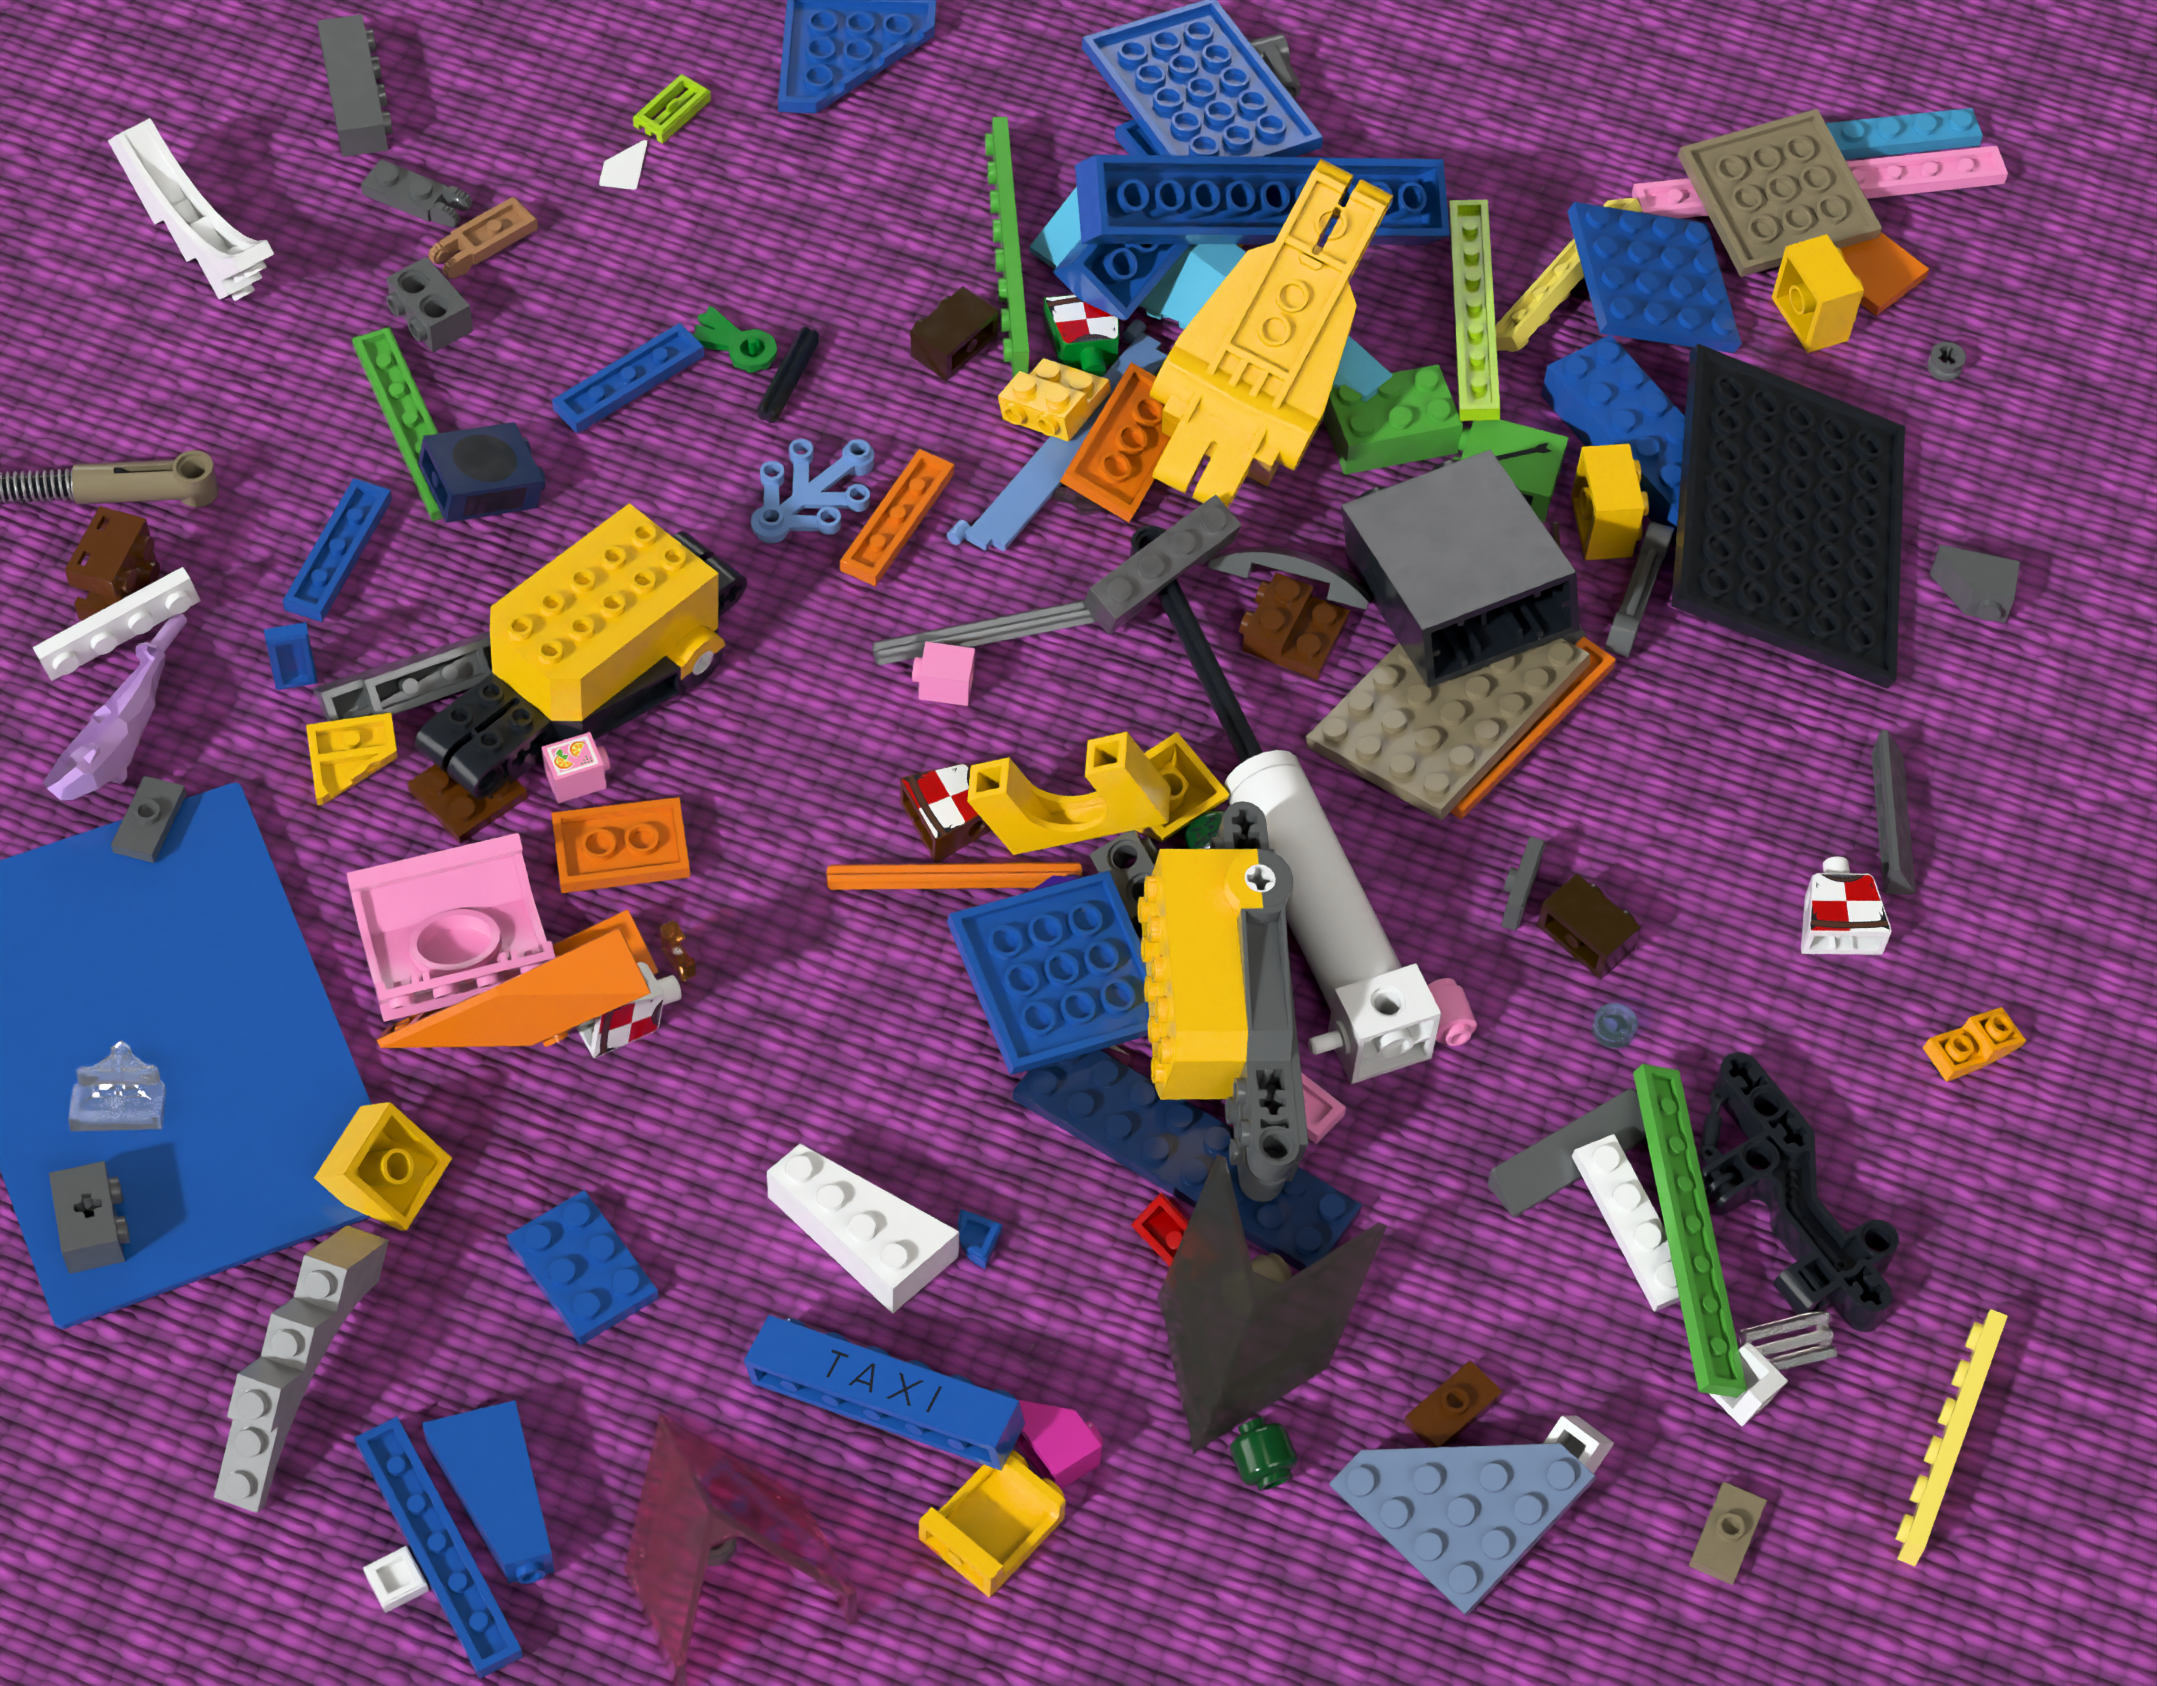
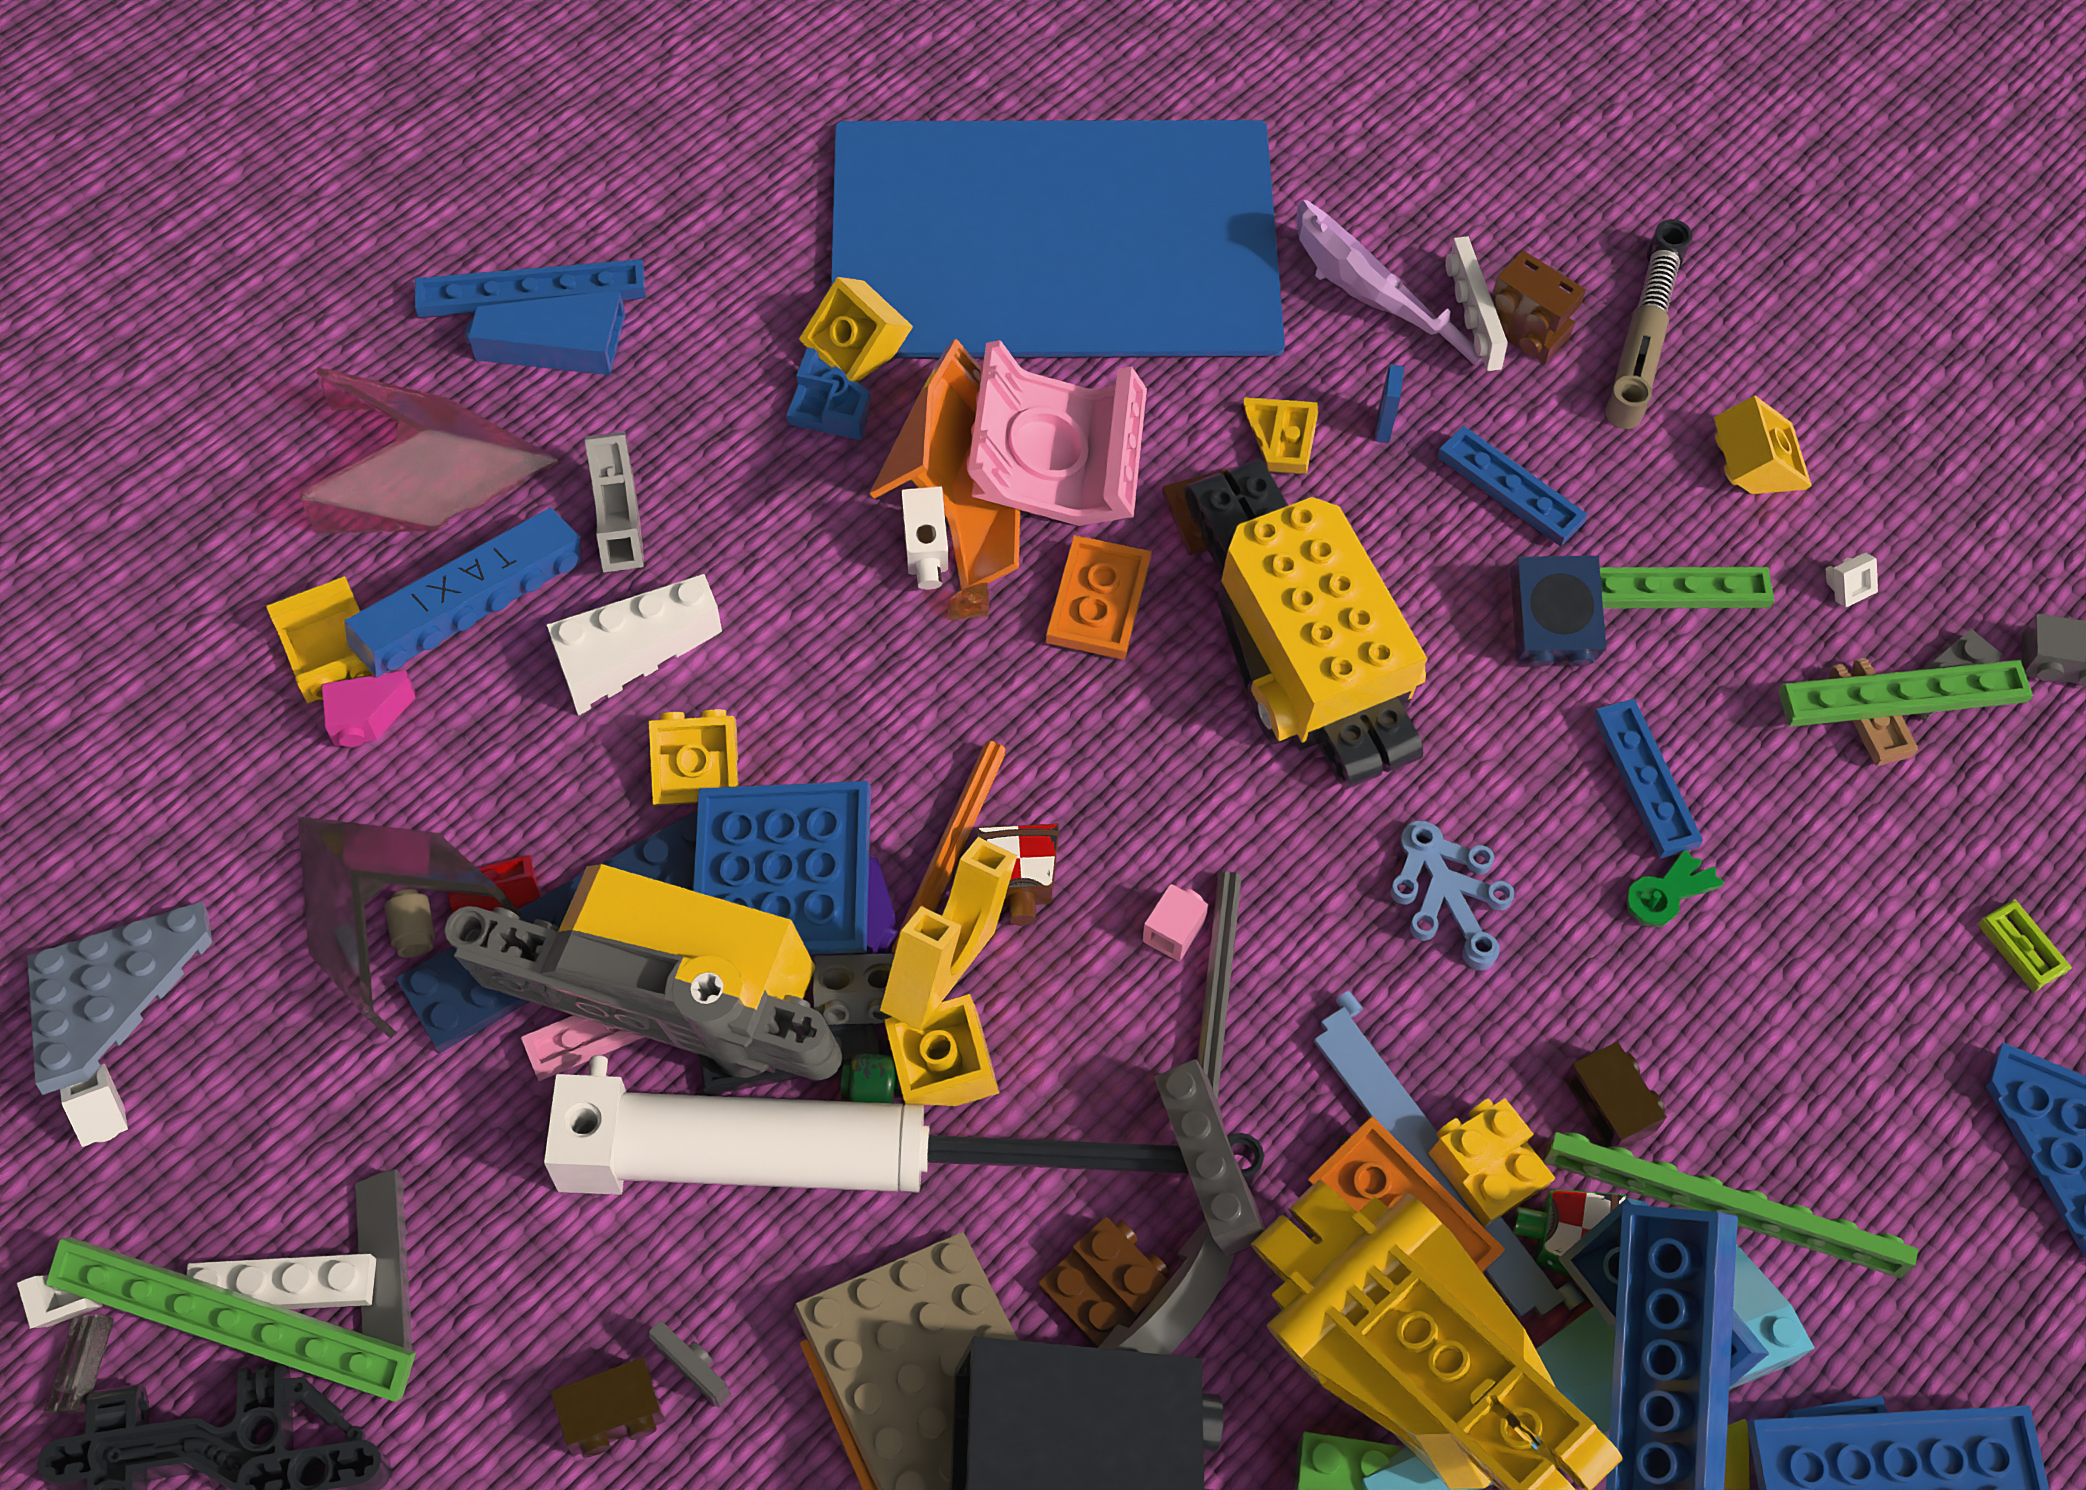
camera: 115 degrees right, 5 degrees up
(84, 1239) = (907, 146): dark grey brick -> none
(118, 1094) = (1012, 197): clear slope -> none
(148, 819) = (1266, 277): dark grey plate -> none
(199, 231) = (1984, 458): white arch -> none
(216, 367) = (1760, 449): none -> yellow slope
(296, 1339) = (718, 220): light grey arch -> none
(337, 269) = (1853, 579): none -> white tile
(395, 1579) = (524, 256): white tile -> none
(408, 680) = (1346, 478): dark grey wedge -> none
(428, 305) = (1792, 643): dark grey brick -> none
(463, 211) = (1905, 693): none -> bright green tile
(475, 1172) = (828, 400): none -> blue slope
(575, 767) = (1194, 585): bright pink brick -> none
(582, 1267) = (711, 449): blue plate -> none
(624, 168) = (1948, 875): white sticker -> none
(719, 1306) = (615, 502): none -> light grey arch
(788, 375) = (1611, 924): black axle -> none
(897, 517) = (1388, 954): orange plate -> none
(966, 1114) = (692, 755): none -> yellow plate
(978, 1236) = (584, 733): blue tile -> none
(1263, 1454) = (254, 858): dark green head -> none
(1453, 1406) = (210, 1039): reddish brown plate -> none
(1456, 1015) = (584, 1218): bright pink brick -> none
(1614, 1025) = (496, 1384): clear light blue tile -> none

